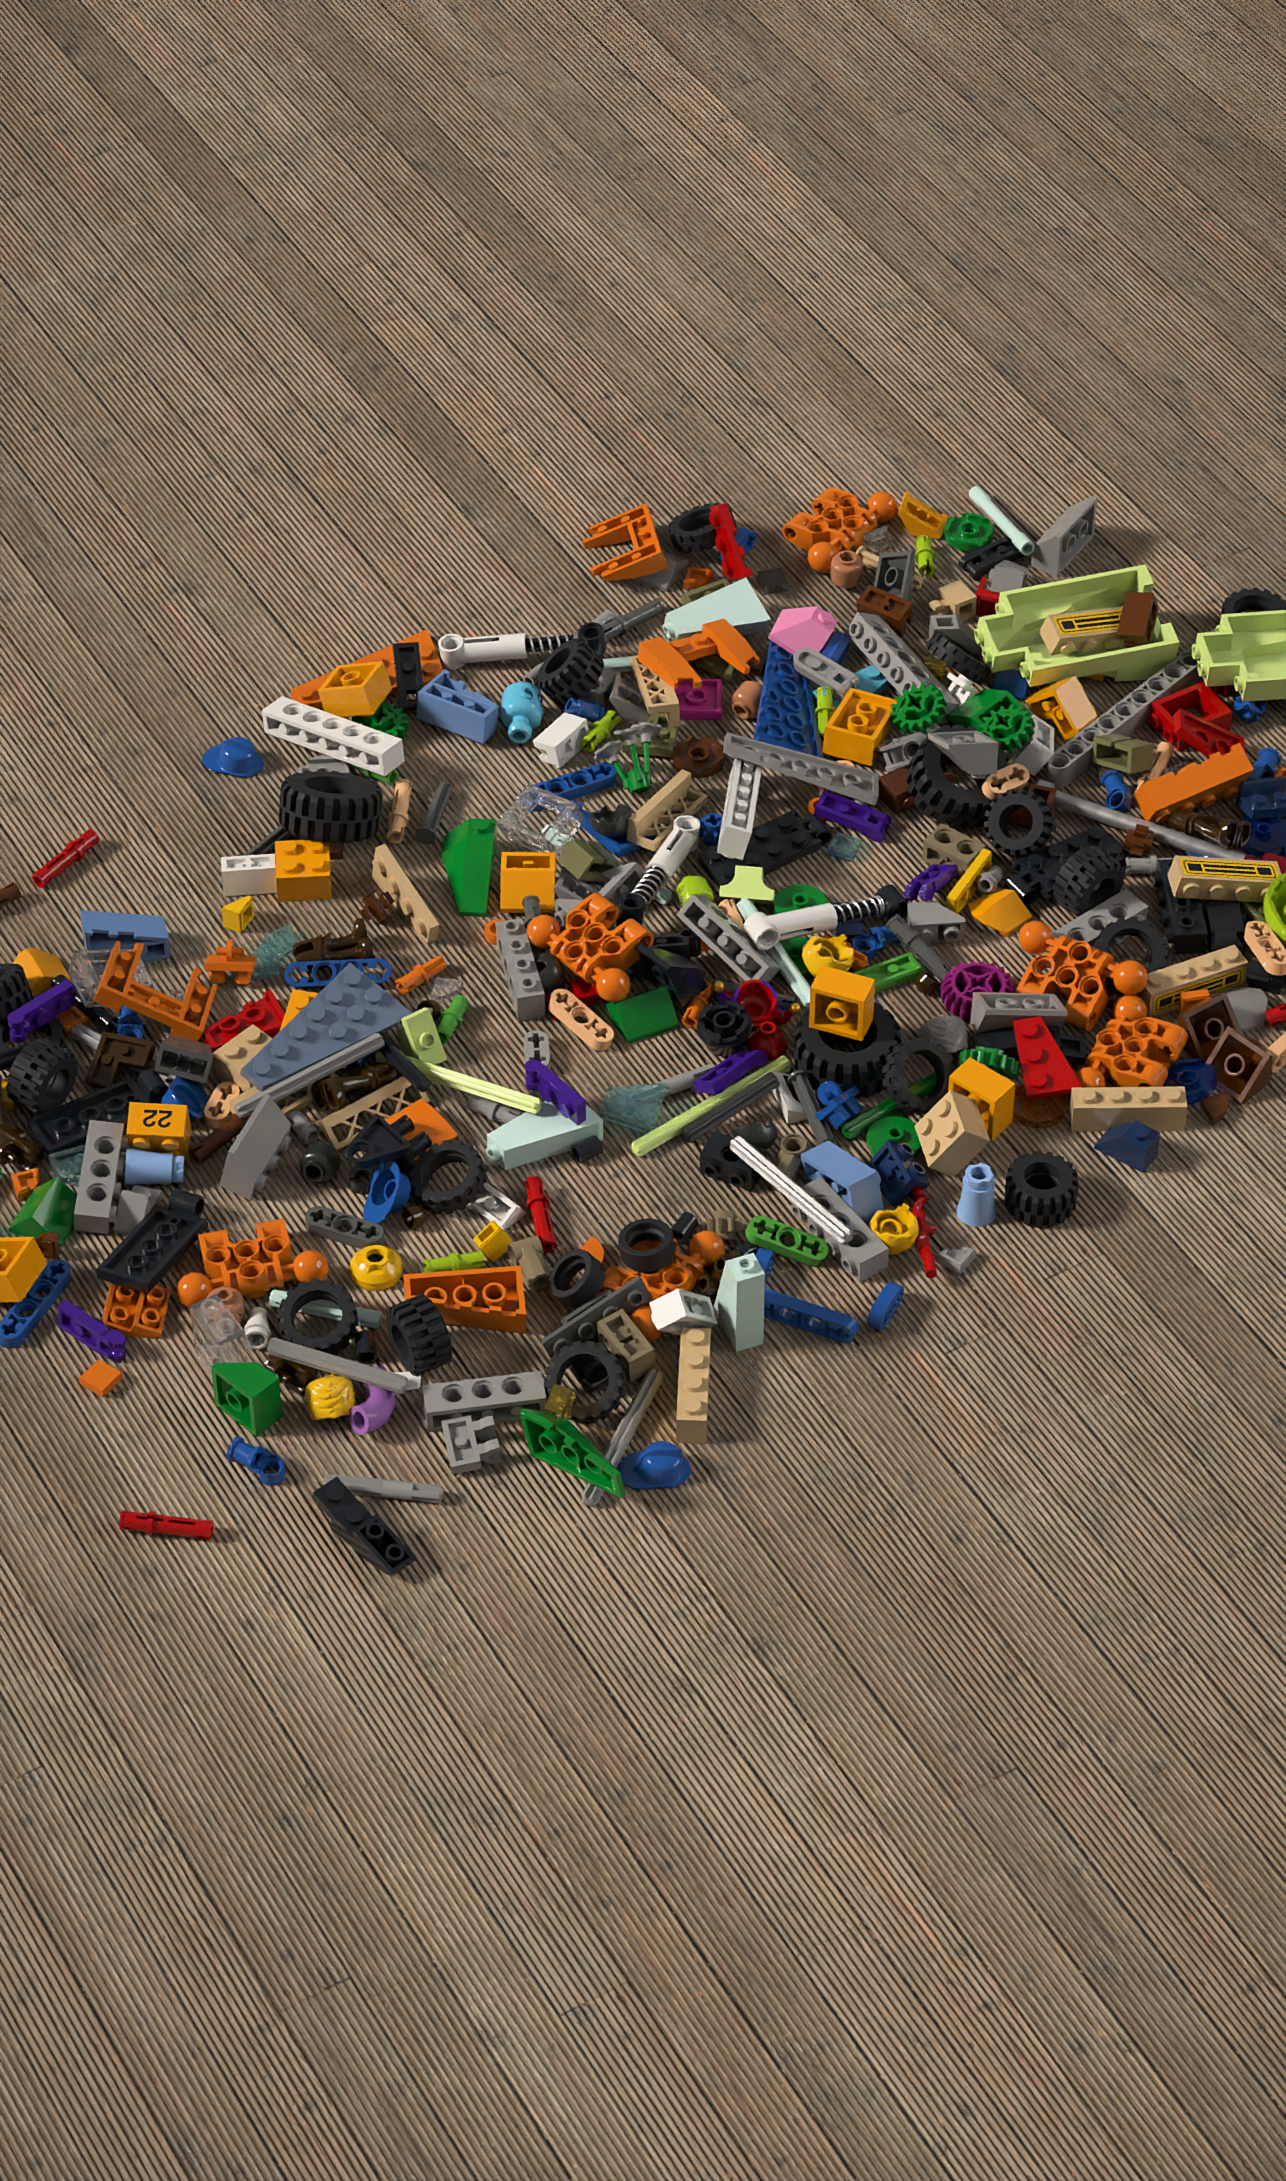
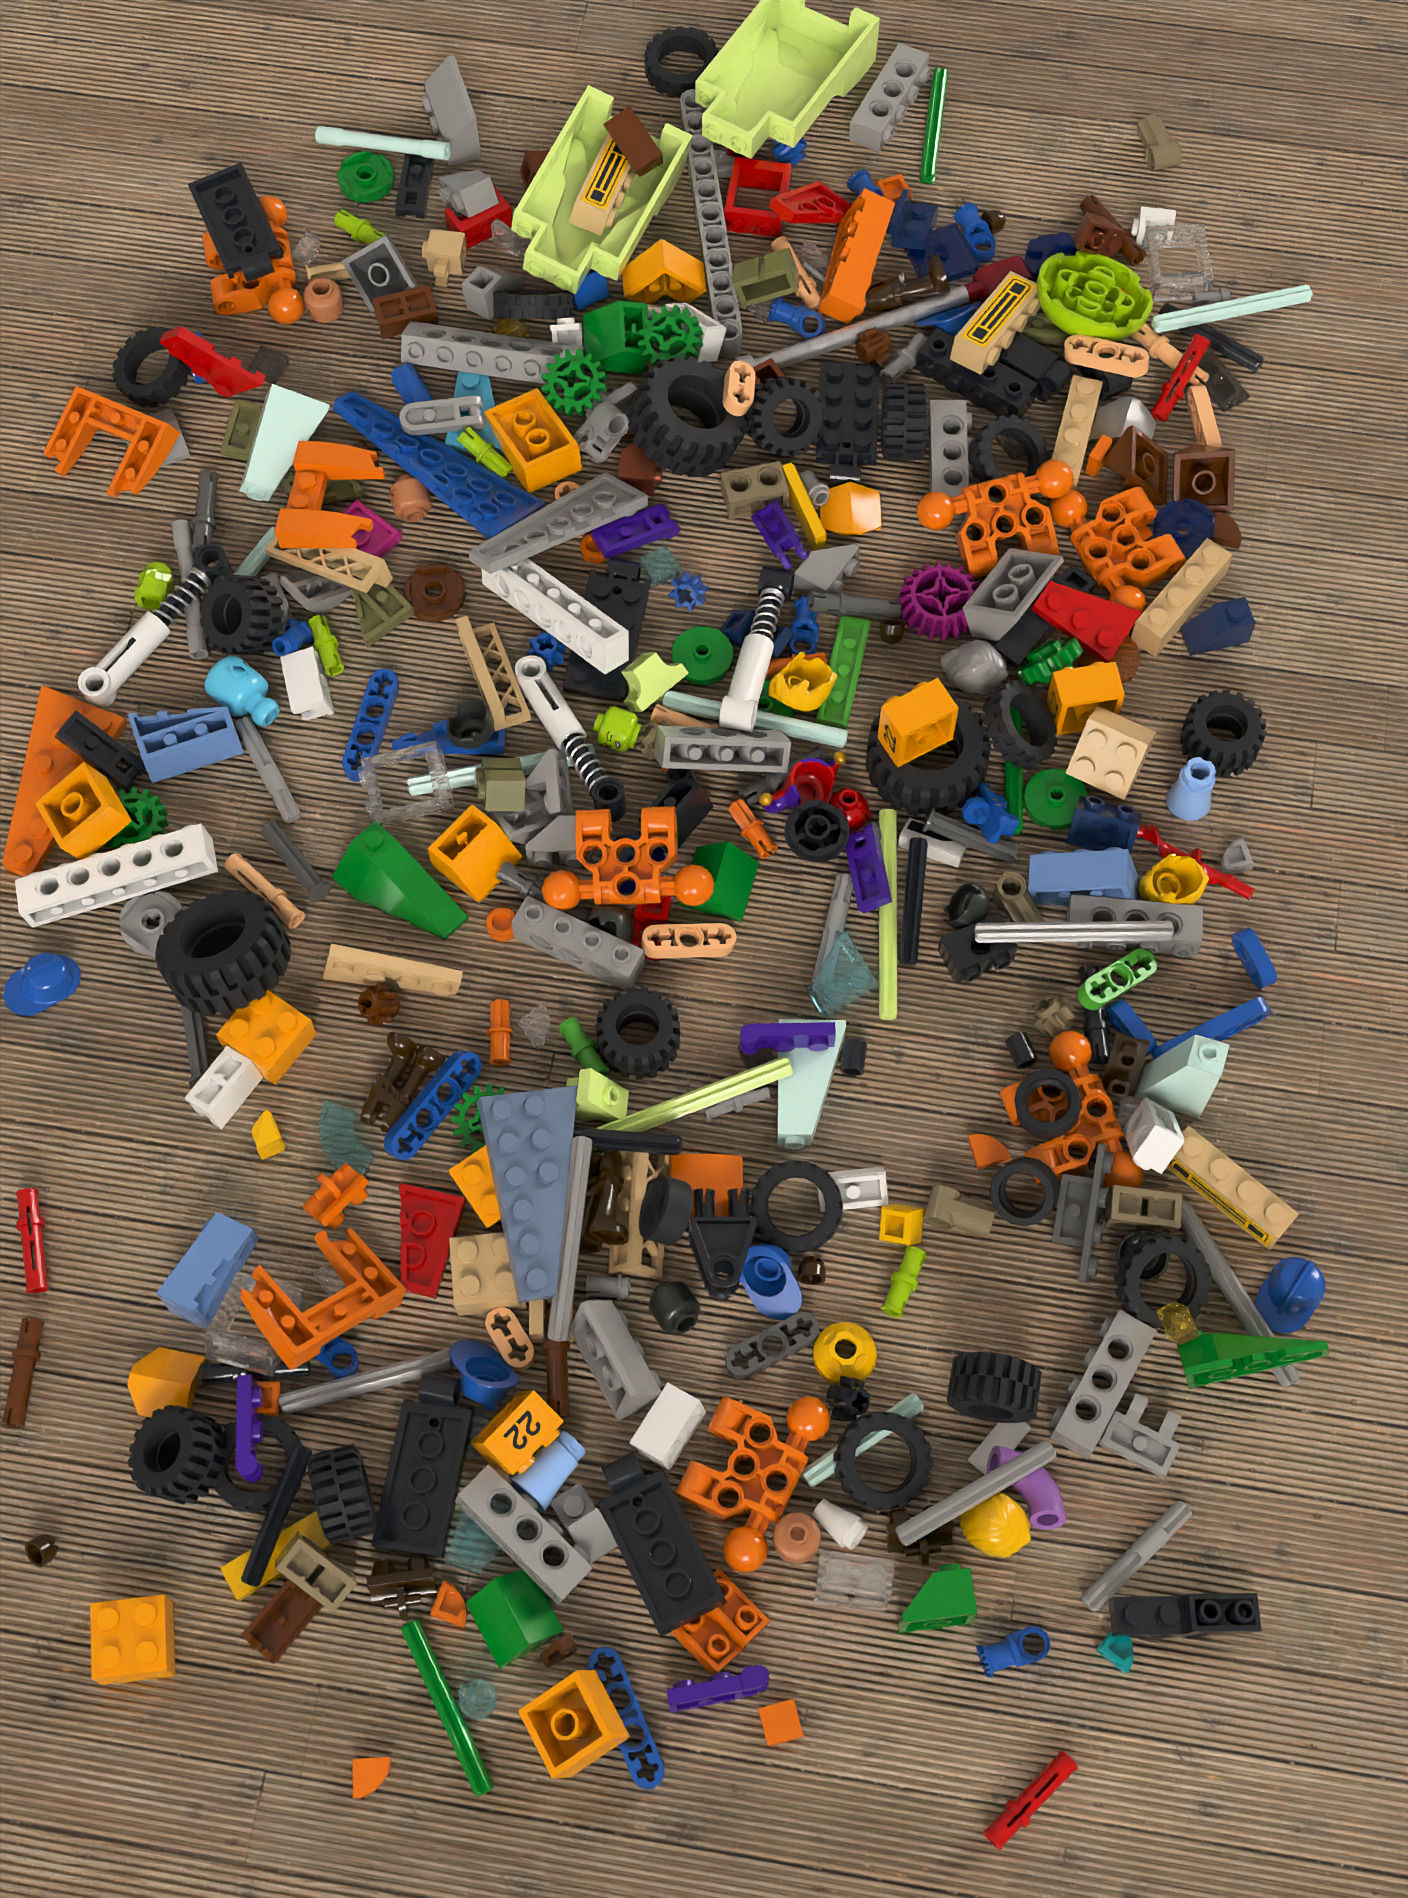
camera: 50 degrees left, 20 degrees up
(115, 1052) = (362, 1394): dark brown plate -> none
(184, 1058) = (435, 1333): dark grey torso -> none
(237, 1208) = (668, 1426): none -> white hinge
(310, 1517) = (1117, 1651): none -> teal tile
(343, 1271) = (848, 1398): none -> black gear
(365, 1346) = (944, 1439): black hinge -> none
(378, 1100) = (665, 1210): none -> black tyre
(431, 1004) = (556, 1061): dark brown hinge -> none
(474, 1296) = (975, 1295): orange wedge -> none
(483, 762) = (267, 769): none -> light grey axle
(487, 1032) = (638, 1008): none -> black tyre
(538, 1205) = (897, 1155): red pin -> none
(541, 1053) = (696, 1003): light grey beam -> none
(552, 626) = (154, 586): none -> lime rock
(638, 779) = (424, 662): plant -> none
(668, 969) = (718, 823): black slope -> none
(697, 577) = (200, 419): orange tile -> none
(802, 628) = (372, 391): bright pink slope -> none
(836, 866) = (694, 584): none -> blue gear
(848, 490) = (236, 222): none -> black hinge
(921, 518) = (313, 197): light orange slope -> none
(969, 750) = (694, 385): light grey slope -> none

